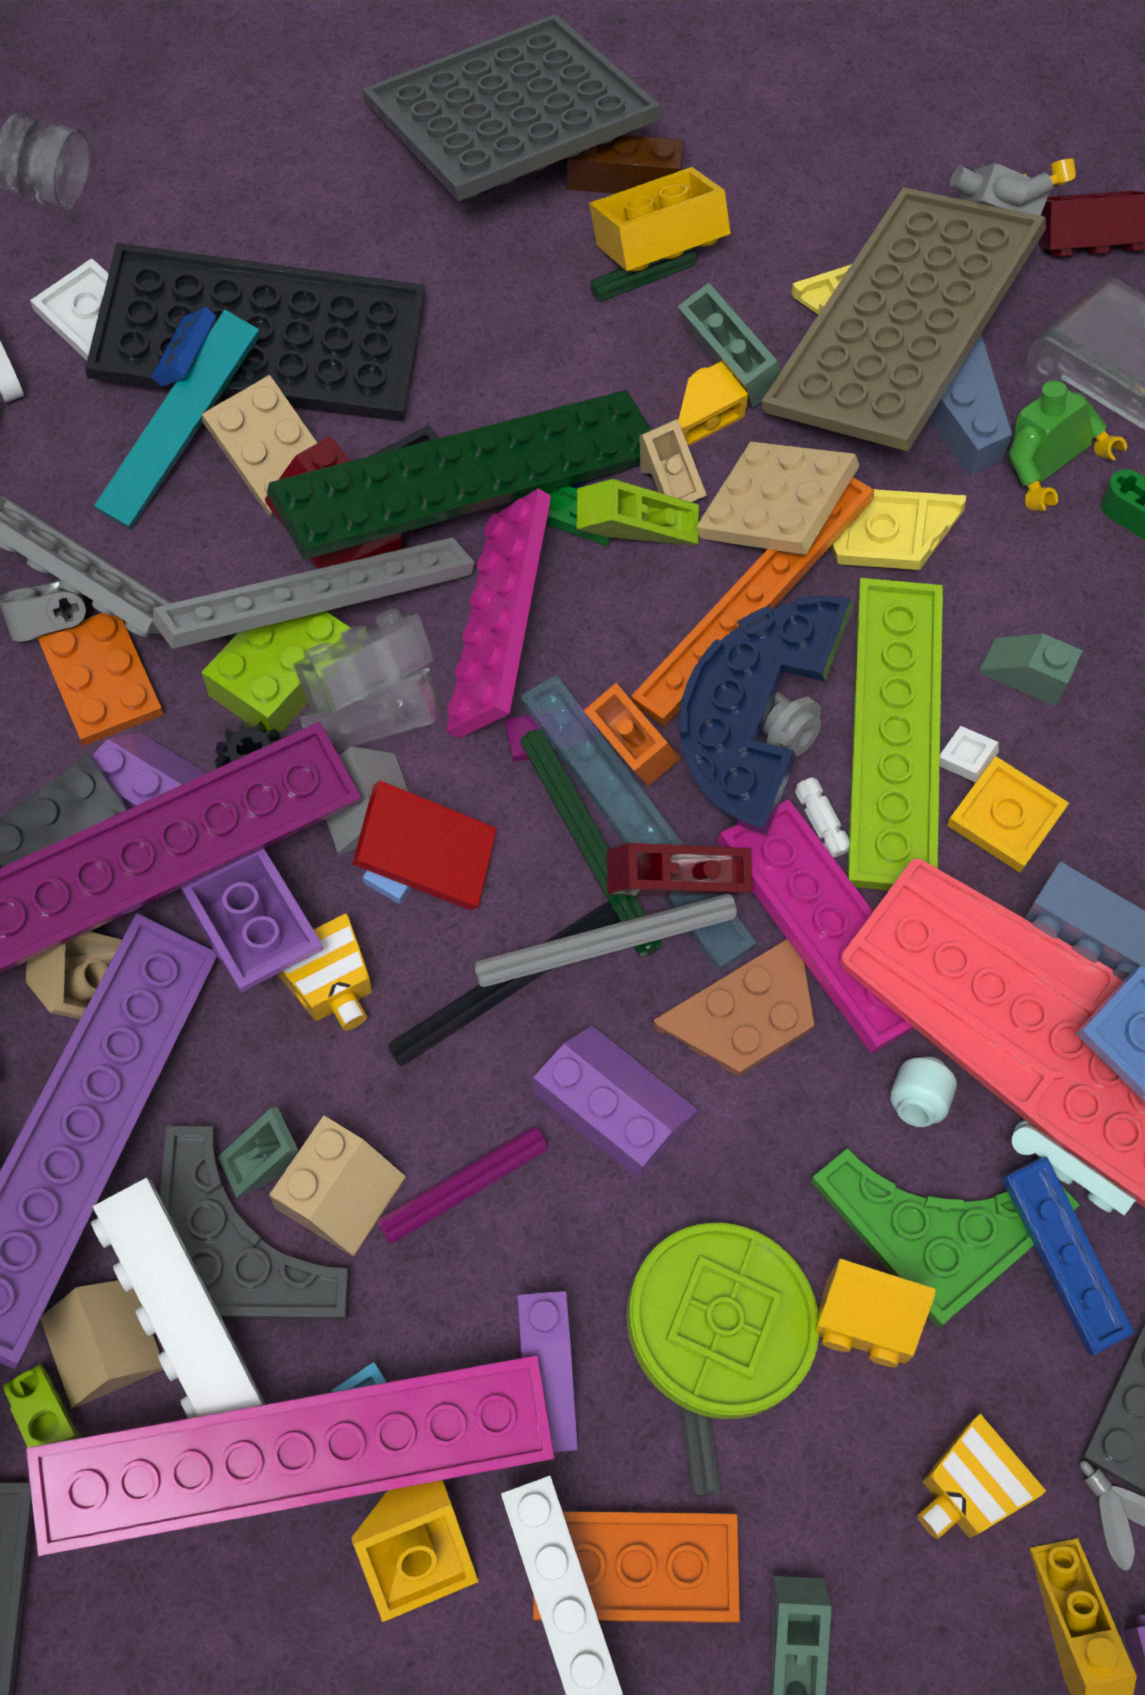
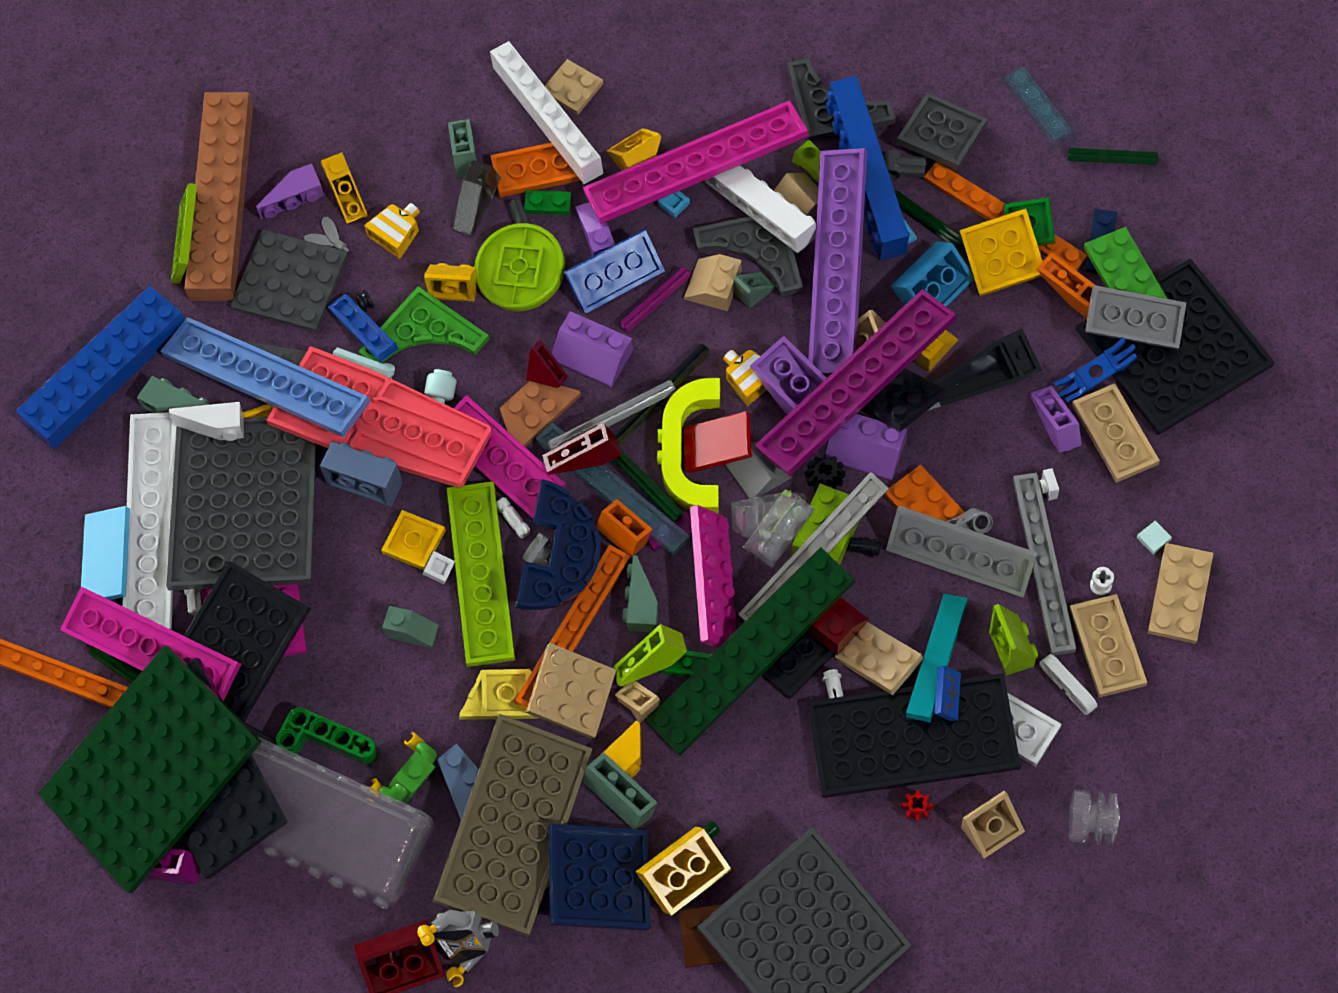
camera: 175 degrees right, 0 degrees up
(51, 407) = (1011, 640): none -> lime slope
(193, 208) = (992, 825): none -> tan slope
(289, 244) = (917, 813): none -> red gear
(354, 437) = (833, 683): none -> white pin
(451, 952) = (686, 400): none -> neon yellow arch
(531, 1249) = (614, 271): none -> plate
(628, 612) = (642, 604): none -> sand green slope
(633, 1474) = (547, 202): none -> green plate
(711, 1073) = (544, 367): none -> dark red slope
(790, 1511) = (475, 197): none -> clear smoke slope
(791, 238) = (596, 877): none -> dark blue plate
(1057, 1323) = (364, 300): none -> black bush

